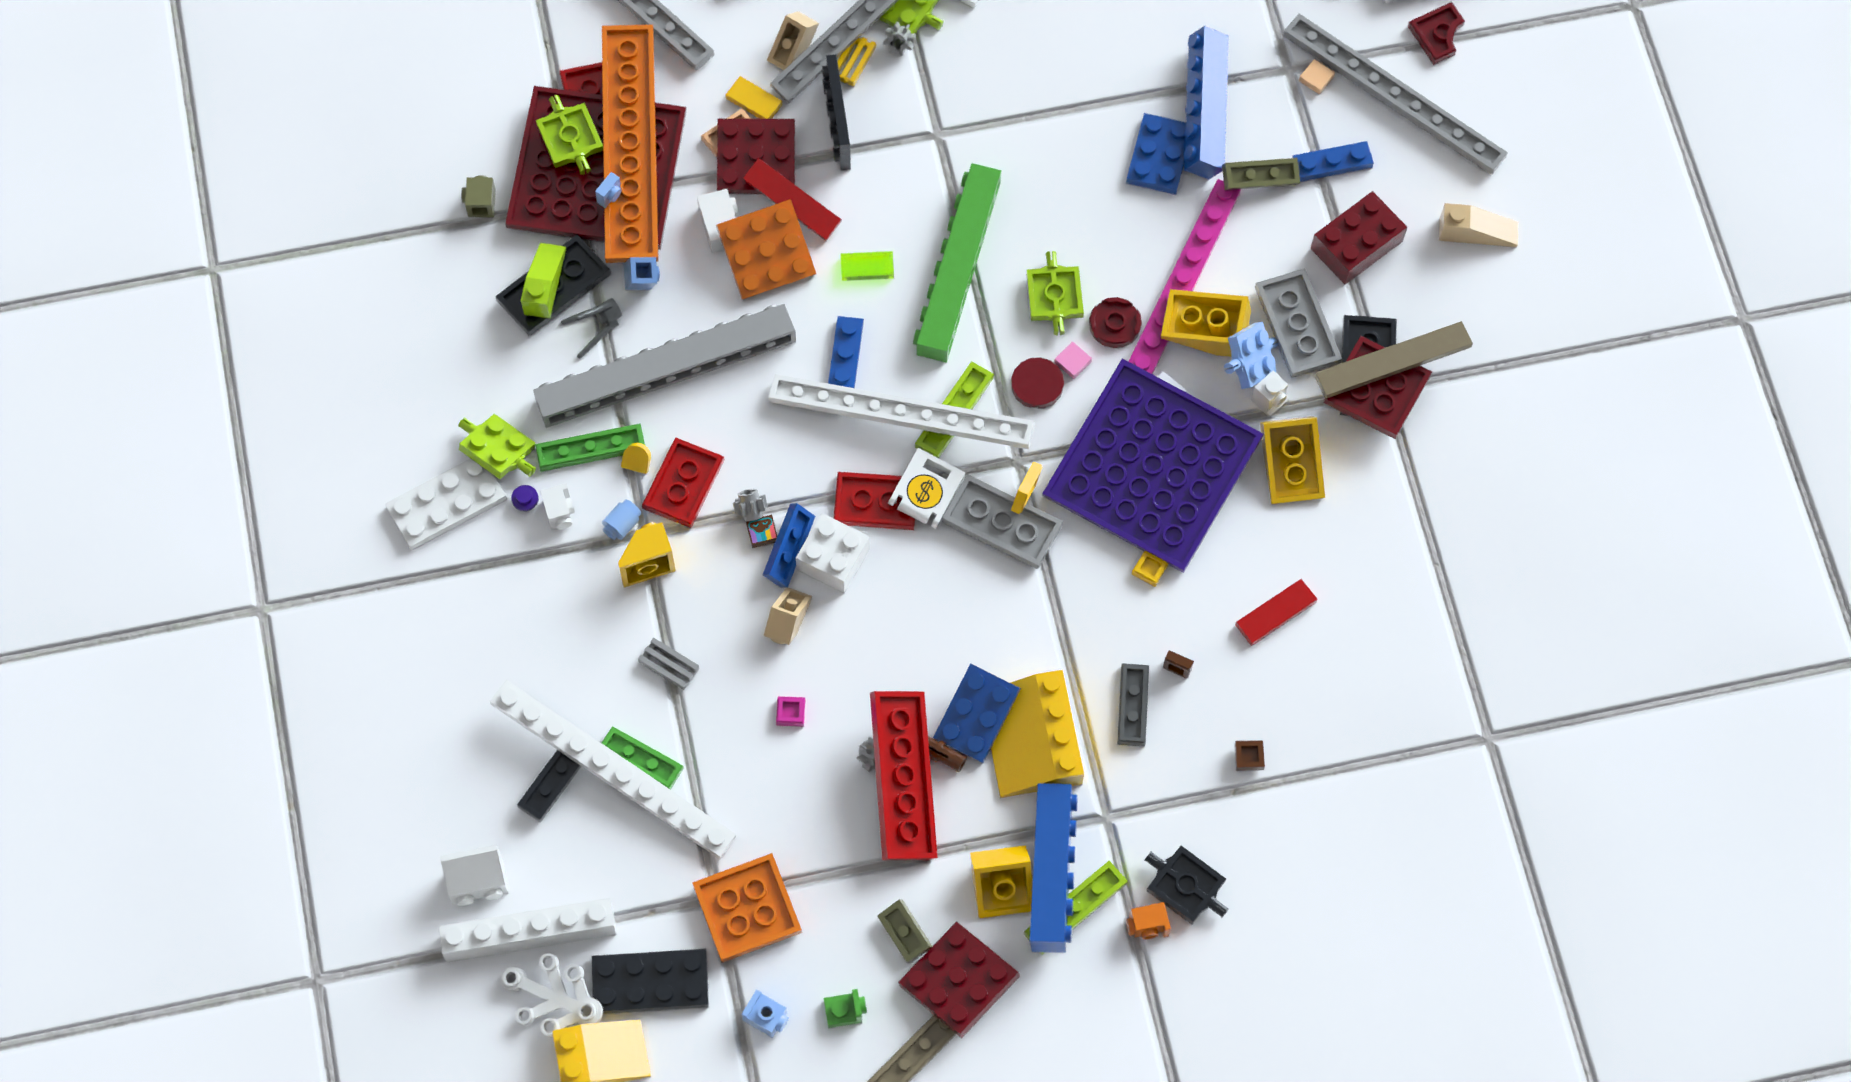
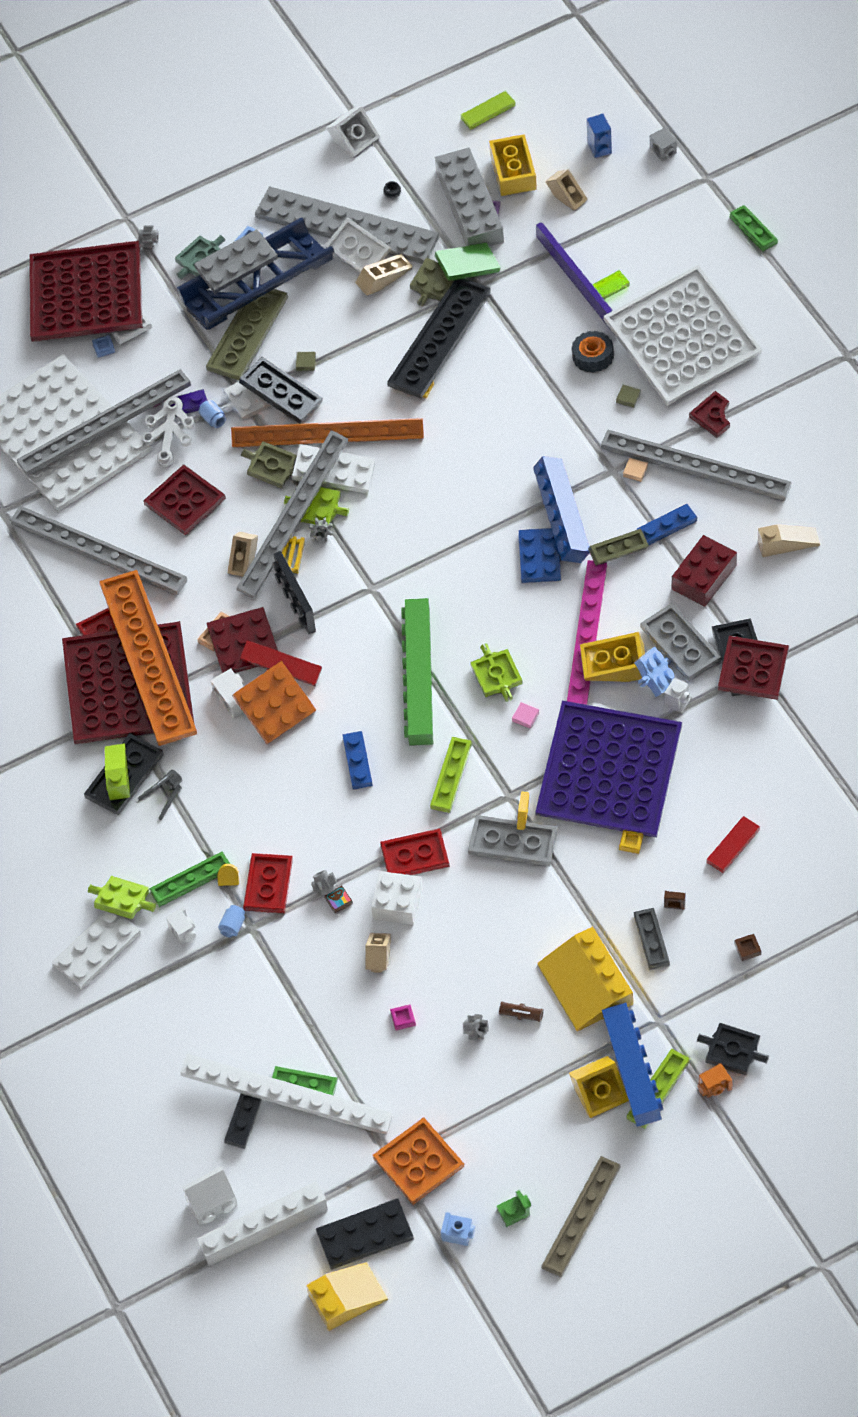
camera: 10 degrees left, 10 degrees down
(479, 196) = (47, 728): olive brick -> none
(524, 498) = (154, 928): dark purple plate -> none
(556, 998) = (299, 1264): white plant -> none
(569, 135) = (101, 664): lime plate -> none
(608, 190) = (145, 692): light blue plate -> none
(641, 273) = (187, 746): medium blue brick -> none
(646, 555) = (261, 938): yellow slope -> none
(650, 651) = (301, 1003): light grey tile -> none
(664, 365) = (226, 805): light grey brick -> none
(753, 99) = (227, 602): yellow tile -> none
(788, 544) = (361, 902): blue plate -> none
(867, 265) = (351, 694): clear neon green tile -> none
(902, 411) = (413, 785): white plate -> none
(903, 775) = (502, 1033): red plate -> none
(904, 931) = (539, 1141): olive plate -> none
(925, 491) = (449, 835): white container -> none
(959, 979) = (590, 1162): dark red plate -> none
(977, 713) = (540, 975): blue plate -> none
(1037, 383) = (505, 738): dark red tile -> none
(1115, 322) = (547, 680): dark red tile -> none
(1293, 459) = (709, 736): yellow slope -> none
(1393, 359) = (758, 644): dark tan tile -> none

